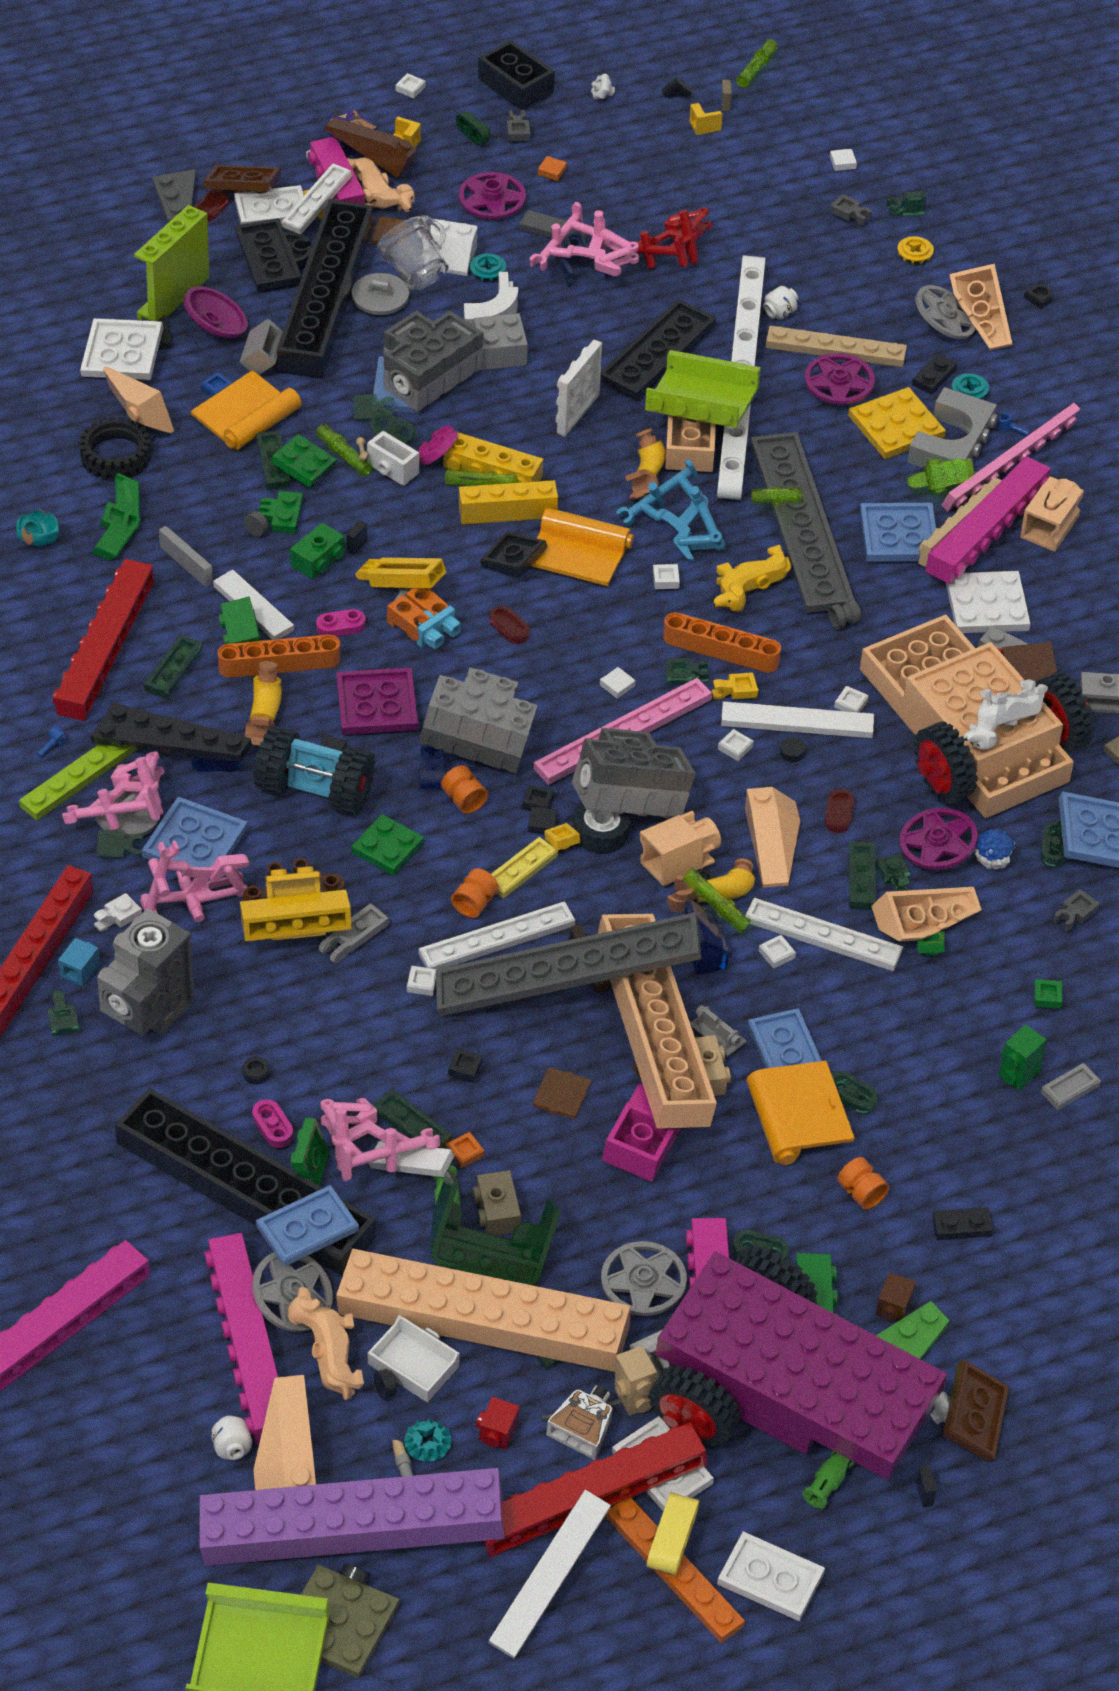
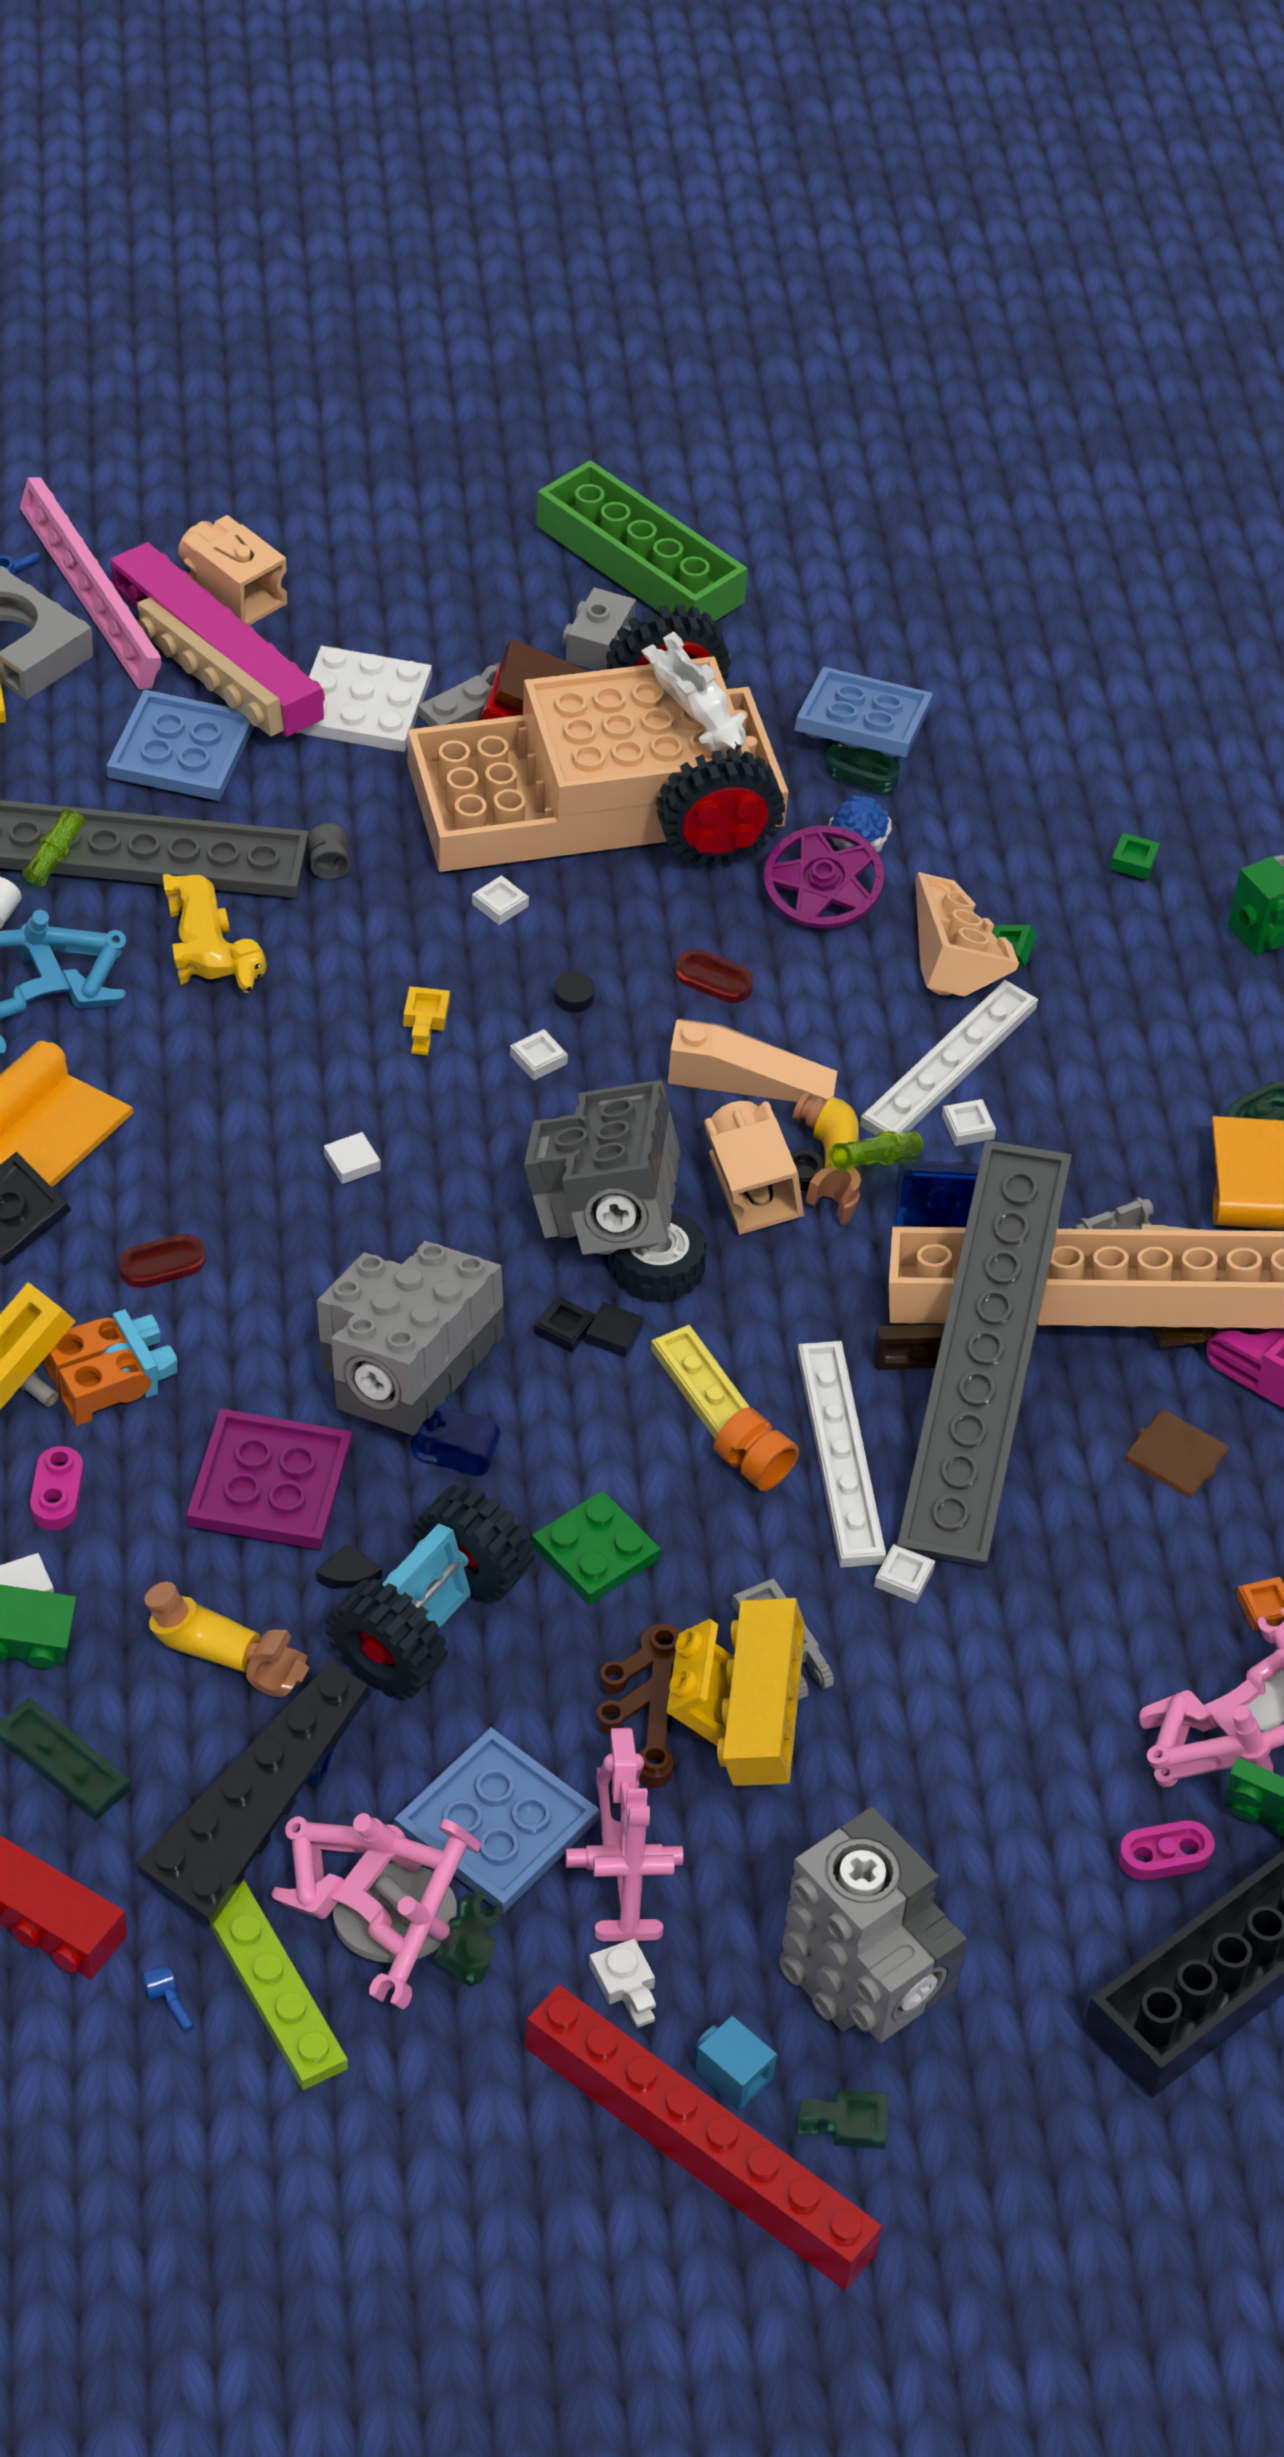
camera: 75 degrees left, 0 degrees up
(256, 1070) = (1037, 1852): black tile -> none
(288, 653) = (108, 1608): orange beam -> none
(408, 1118) = (1204, 1656): clear green plate -> none
(464, 789) = (533, 1404): orange wheel -> none
(465, 1065) = (1104, 1556): black plate -> none
(562, 836) = (666, 1309): yellow plate -> none
(642, 719) = (464, 1172): bright pink plate -> none
(666, 576) = (150, 1034): white plate -> none
(682, 671) = (365, 1070): clear green plate -> none
(721, 642) = (326, 1006): orange beam -> none
(783, 1039) = (1152, 1163): medium blue tile -> none
(797, 719) = (514, 971): white tile -> none
(861, 875) = (857, 983): clear green plate -> none
(894, 871) = (856, 950): clear green plate -> none
(938, 474) = (100, 658): clear neon green hinge -> none
(1077, 907) = (990, 779): dark grey plate -> none

